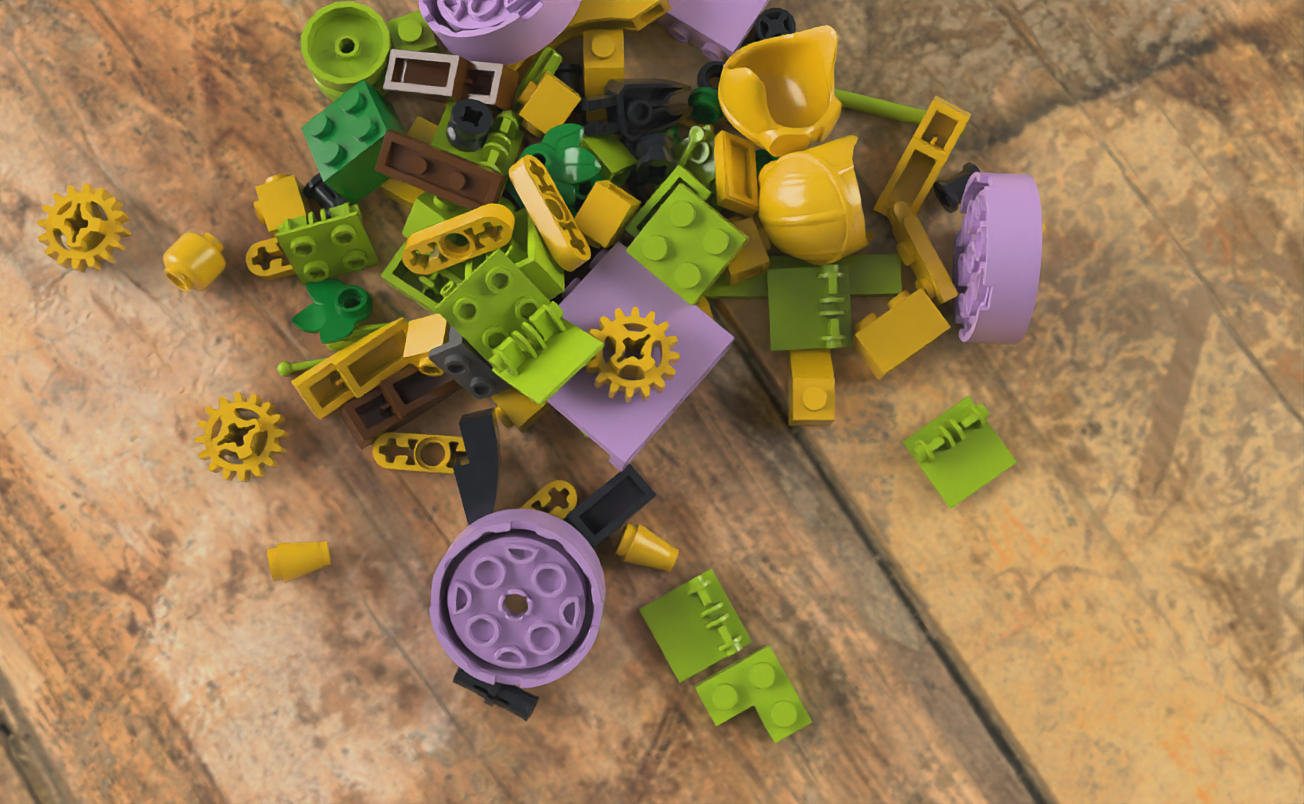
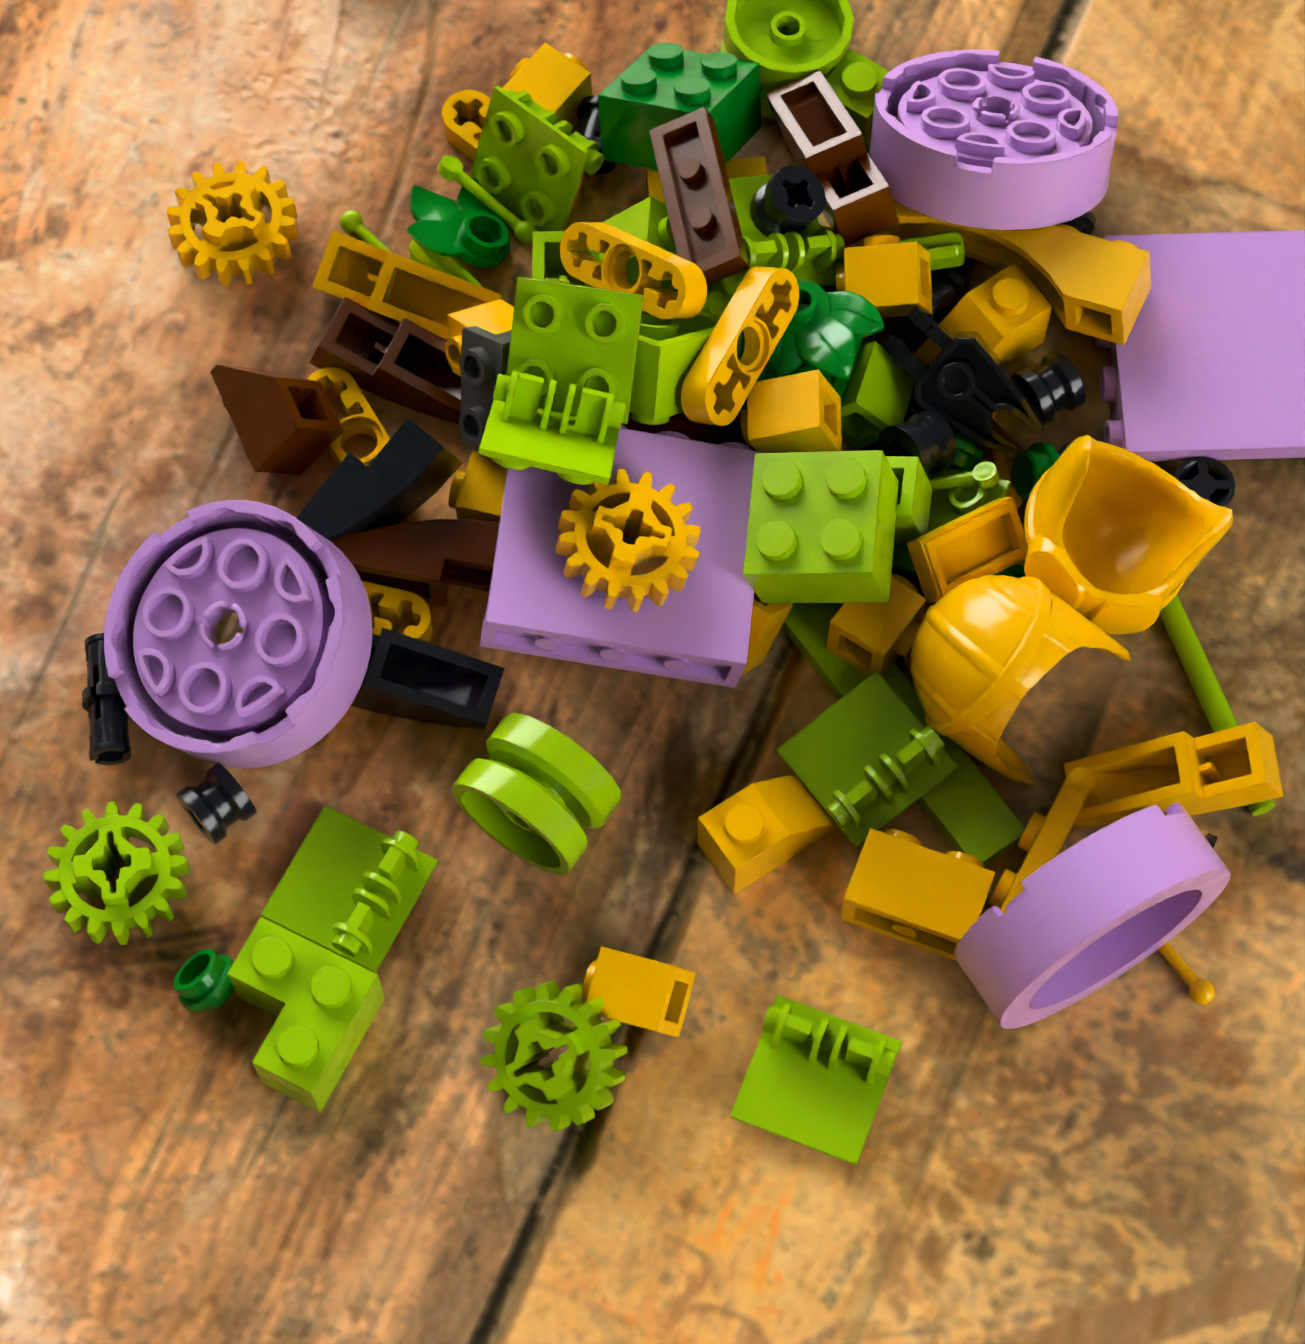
camera: 55 degrees right, 15 degrees down
(194, 261) = (410, 44): yellow head -> none
(295, 291) = (451, 169): none -> lime hinge
(297, 559) = (123, 374): yellow cone -> none
(386, 489) = (278, 417): none -> reddish brown slope
(531, 463) = (425, 555): none -> reddish brown slope
(602, 669) = (216, 803): none -> black wheel
(624, 757) = (92, 859): none -> lime gear
(645, 548) = (408, 760): yellow cone -> none
(661, 61) = (1052, 386): none -> black wheel
(700, 736) = (204, 981): none -> green plate
(719, 490) = (537, 793): none -> lime wheel
(861, 513) = (640, 990): none -> yellow brick
(867, 579) = (567, 1084): none -> lime gear

